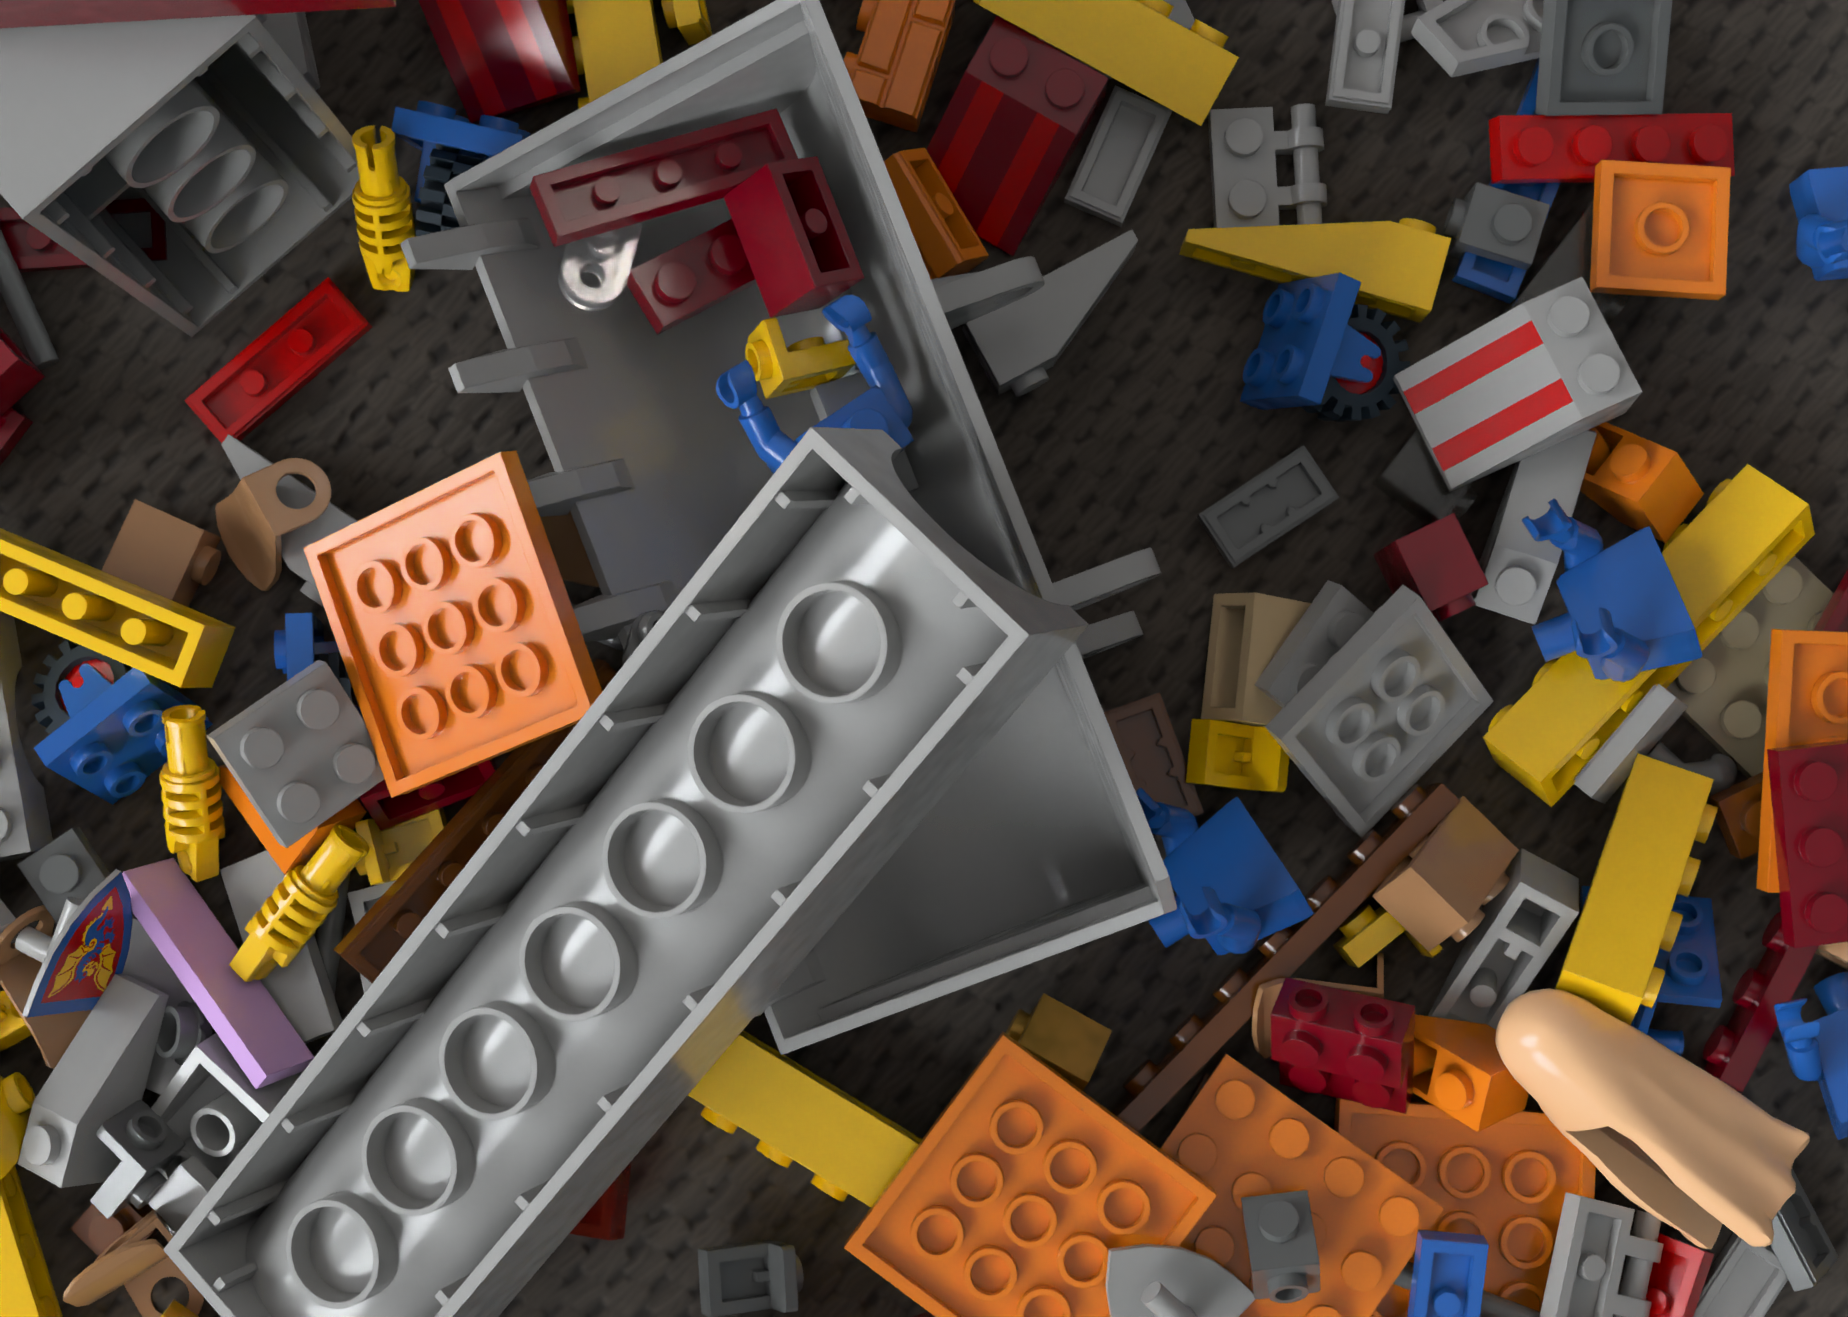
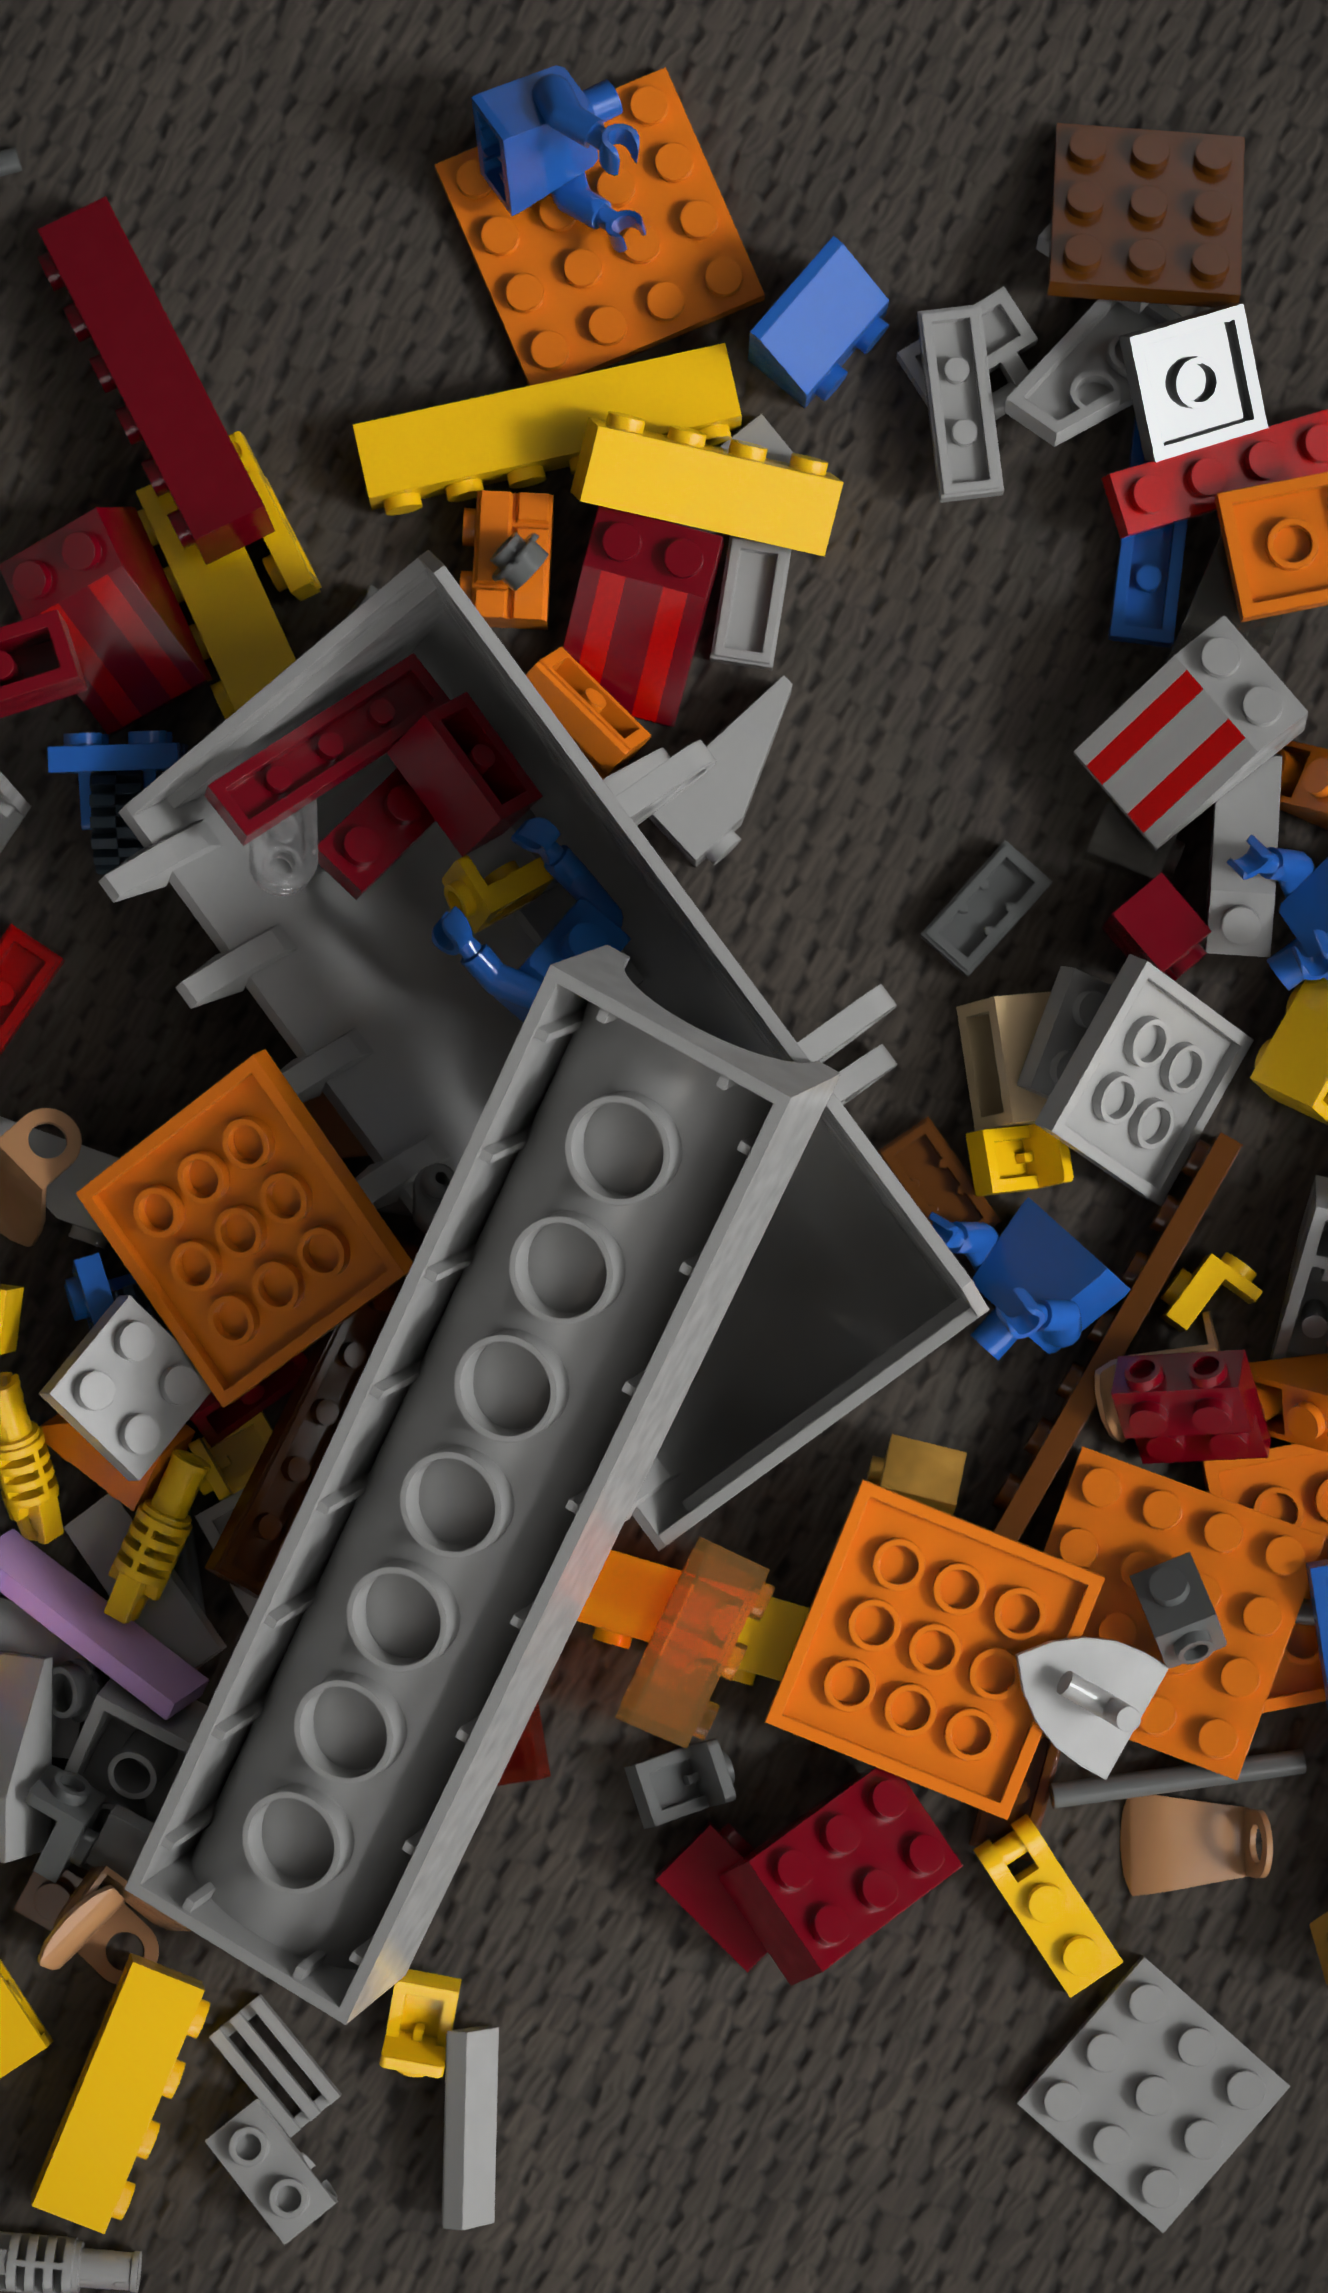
camera: 15 degrees left, 0 degrees up
(382, 210) = (55, 849): yellow hinge -> none
(793, 1154) = (695, 1644): none -> clear orange slope
(903, 48) = (518, 560): none -> dark grey plate
(1245, 166) = (879, 584): light grey plate -> none
(1324, 352) = (1001, 746): blue plate -> none
(1392, 260) = (1017, 647): yellow slope -> none
(1448, 877) = (1248, 1220): medium nougat brick -> none
(1496, 225) = (1136, 578): dark grey bracket -> none

